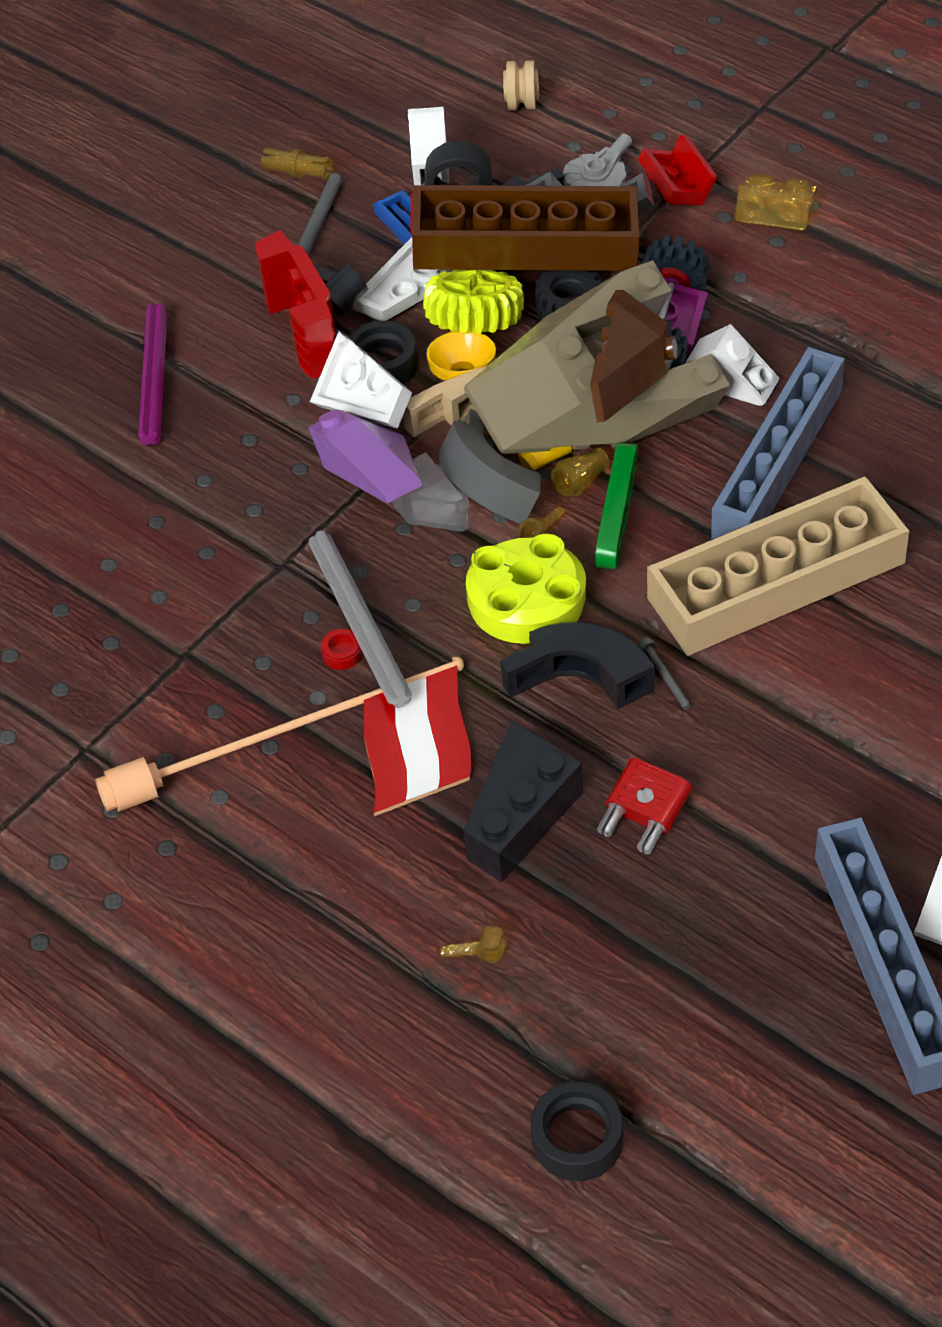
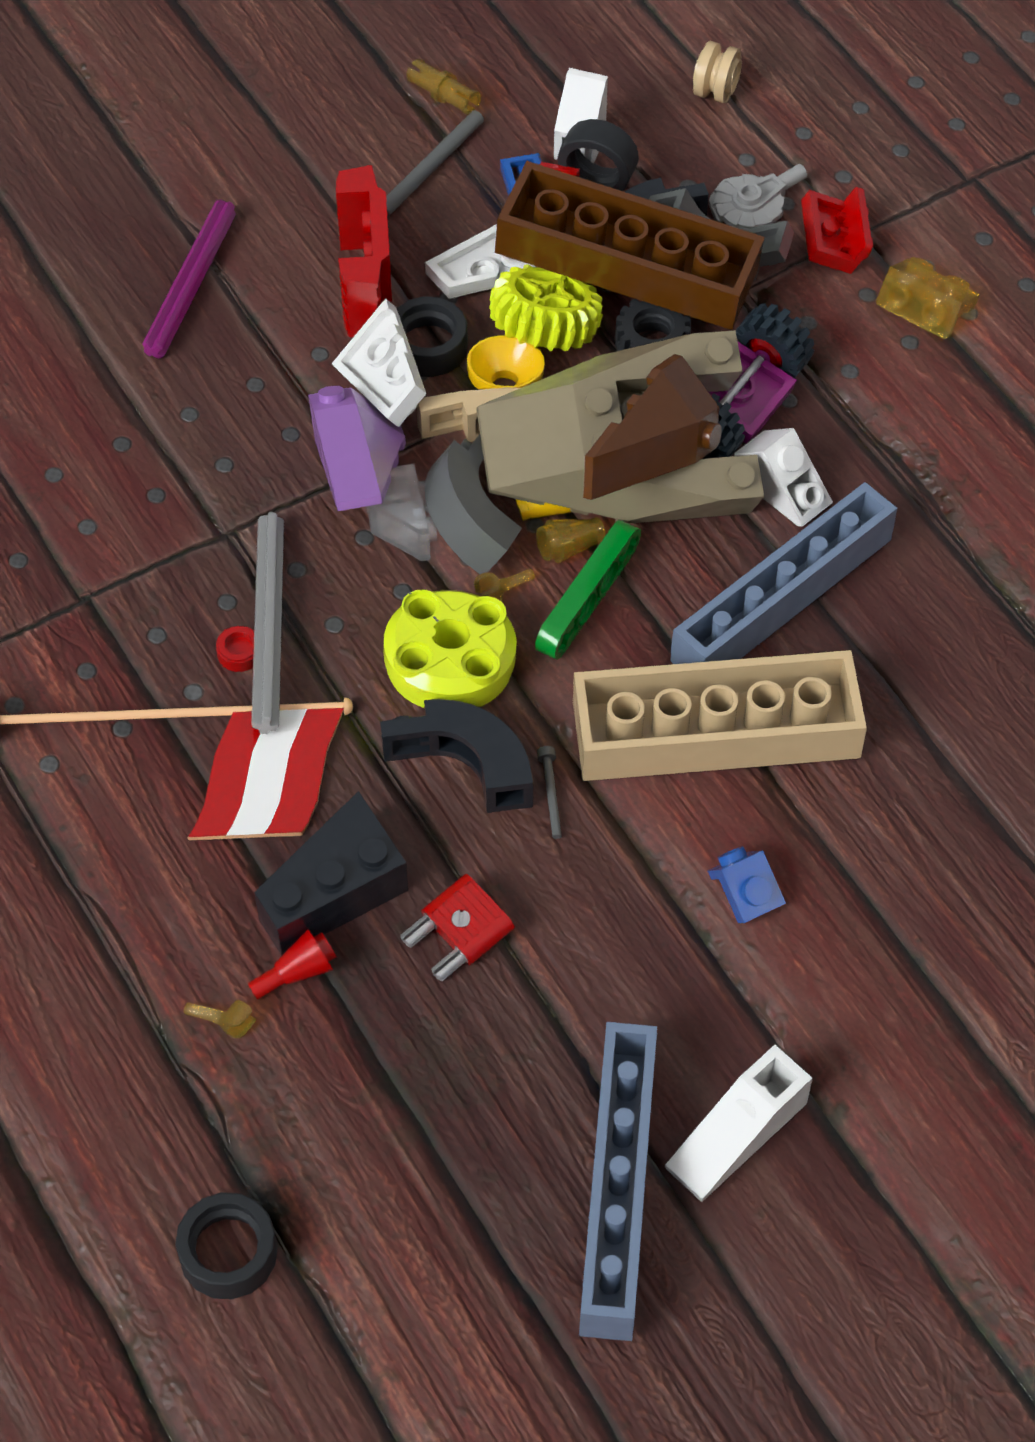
camera: 15 degrees right, 5 degrees up
(344, 286) = (412, 244): black piece -> none
(526, 875) = (303, 960): none -> red cone
(866, 687) = (747, 883): none -> bracket

